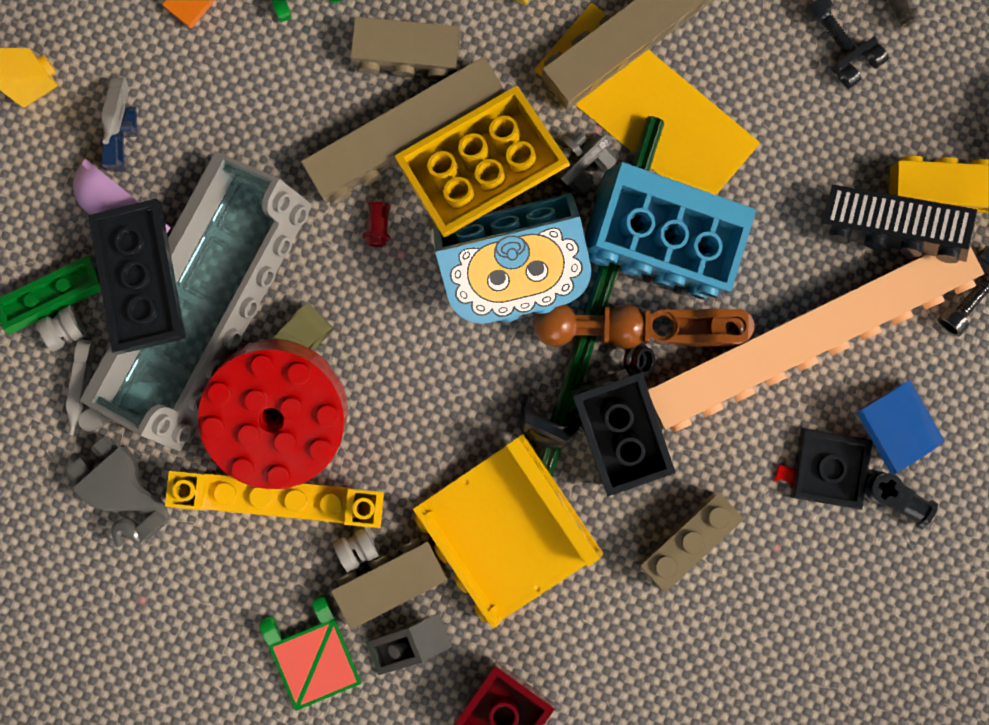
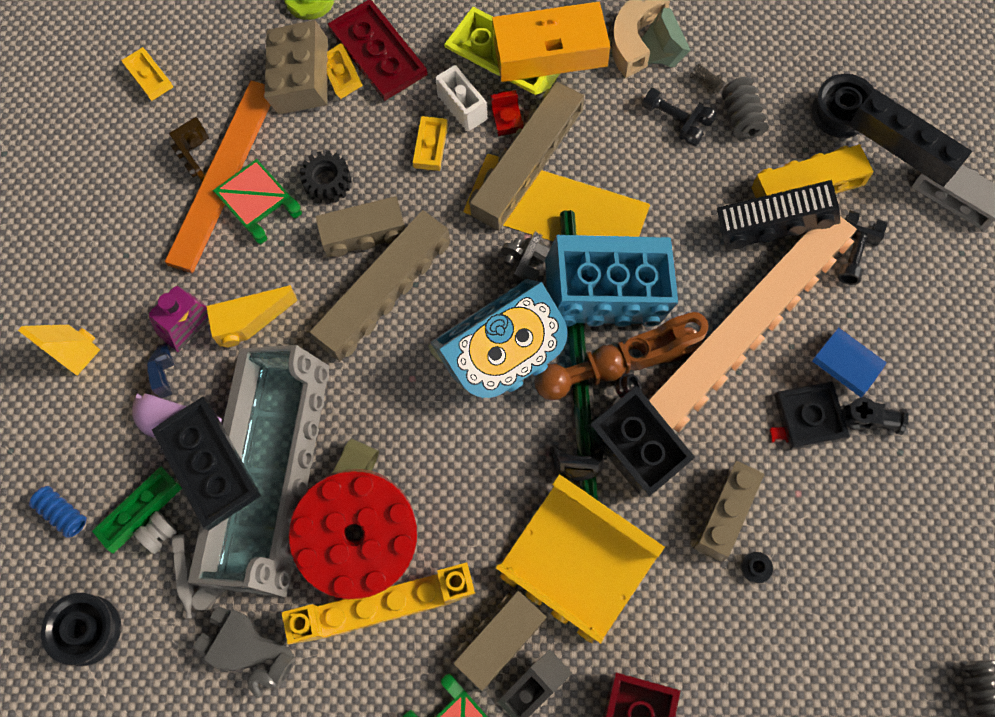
camera: 20 degrees left, 15 degrees down
(114, 107) = (149, 345): light grey piece -> none
(160, 84) = (178, 317): none -> magenta torso
(234, 111) = (245, 316): none -> yellow slope
(363, 544) = (467, 617): light grey wheel -> none
(377, 225) = (387, 367): dark red pin -> none
(481, 161) = (447, 281): yellow slope -> none
(684, 606) = (748, 571): none -> black plate
(922, 64) = (744, 108): none -> dark grey piece

